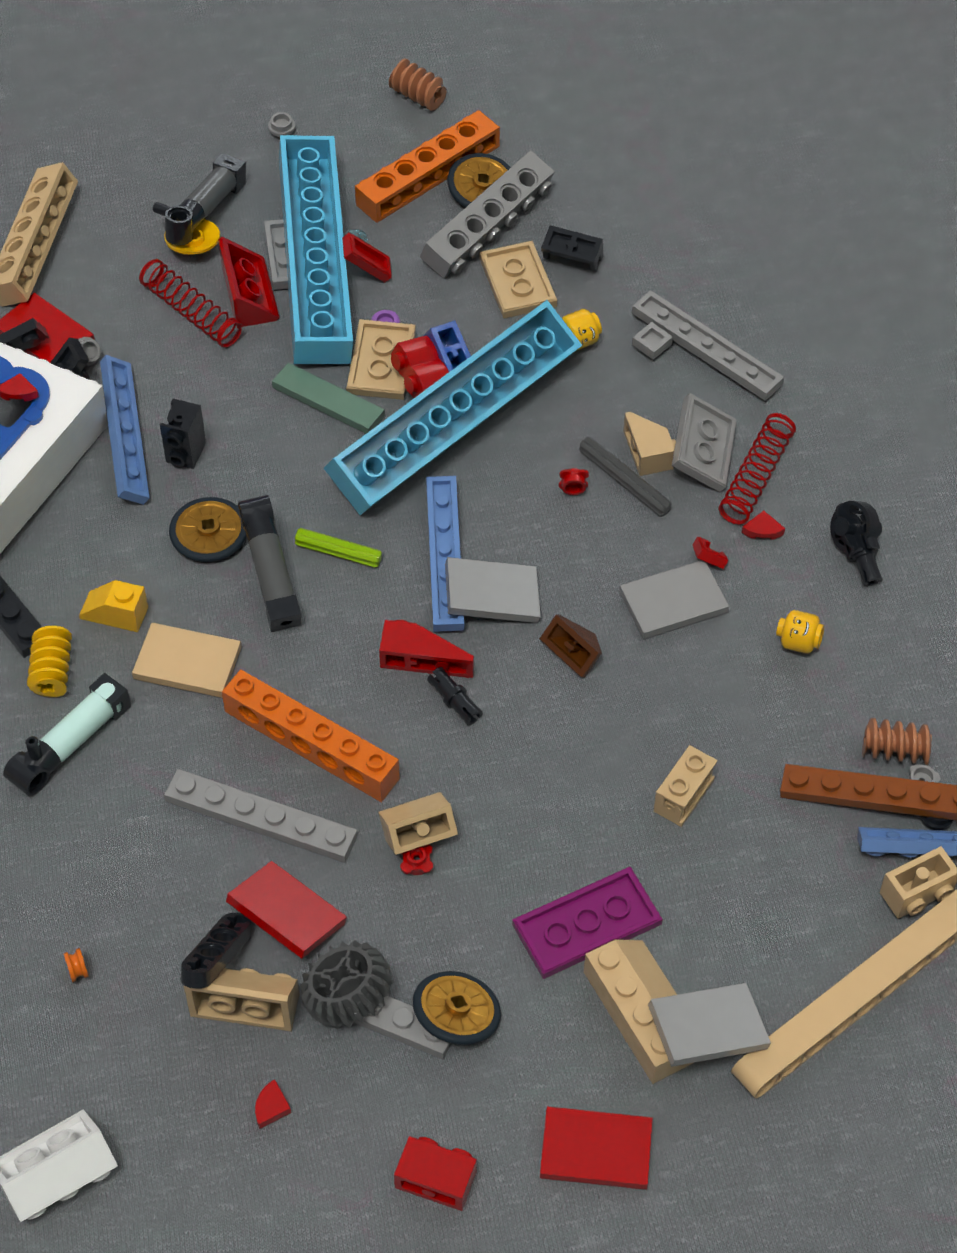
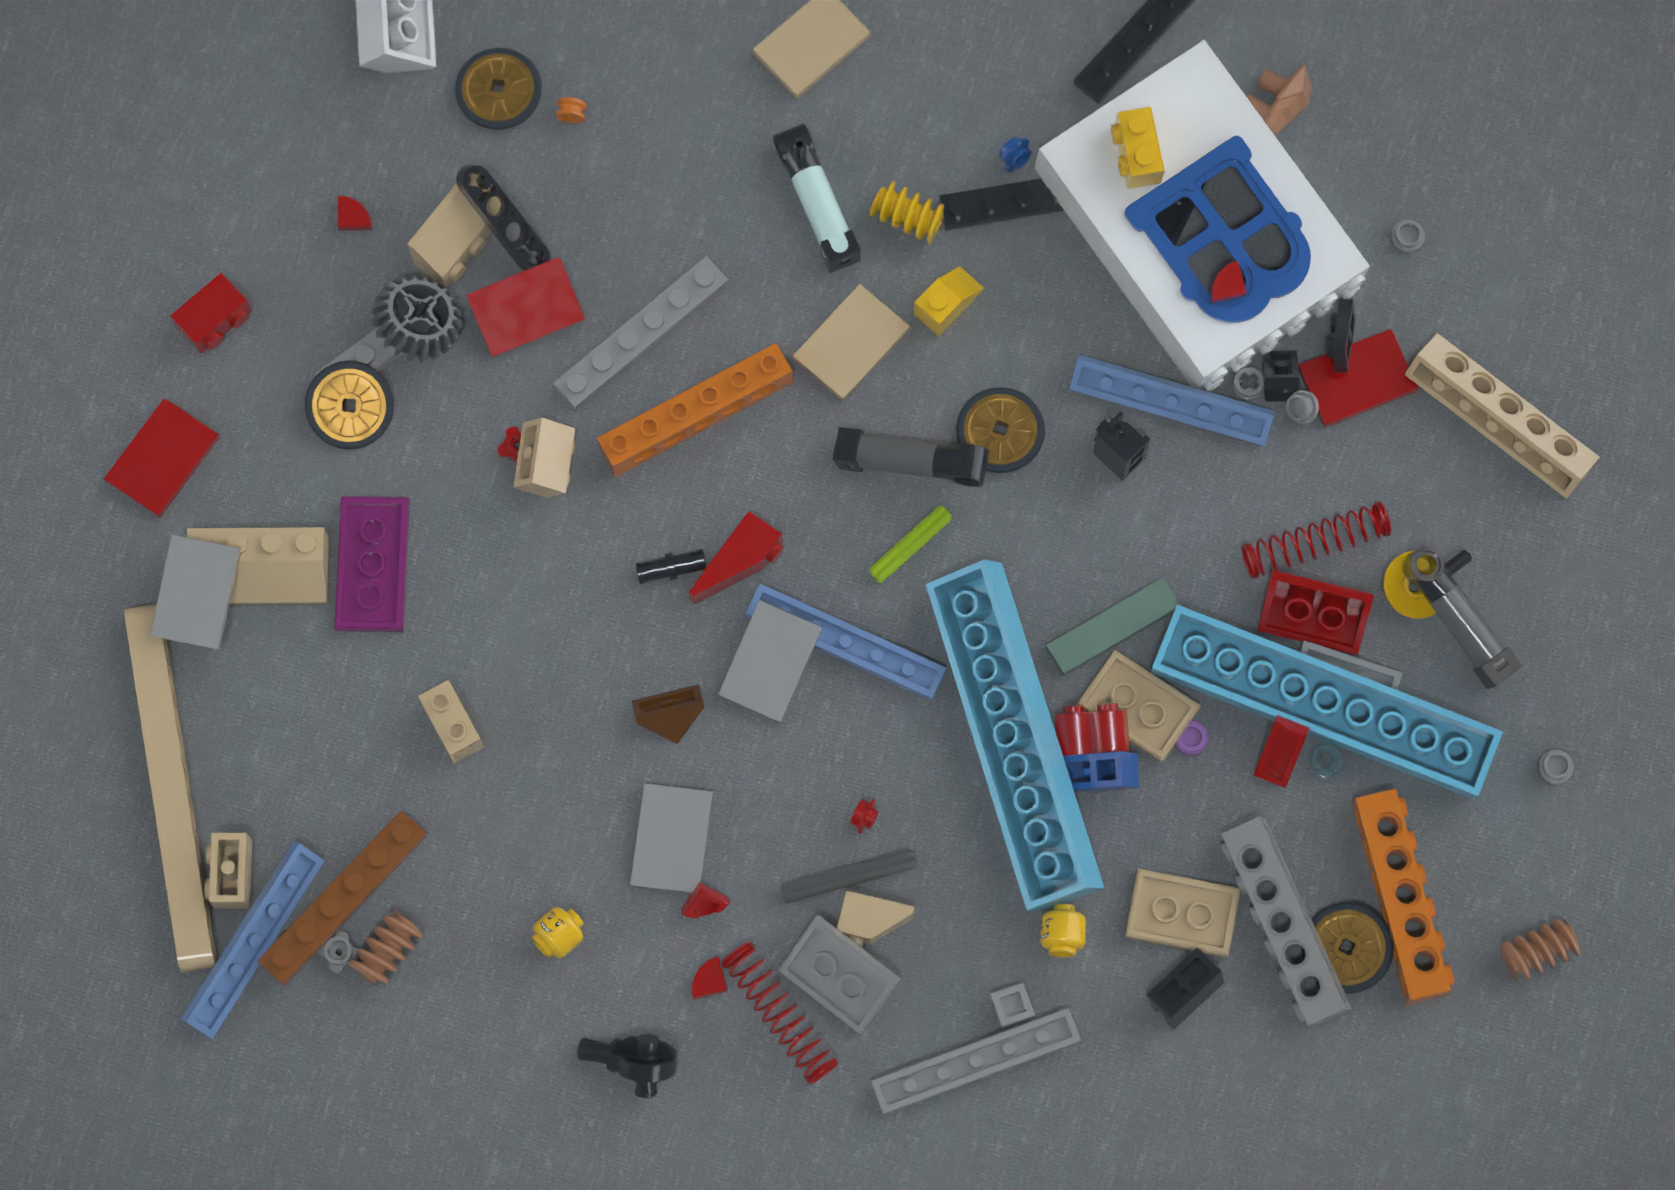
camera: 120 degrees right, 20 degrees up
(87, 1060) = (500, 68): none -> pearl gold wheel

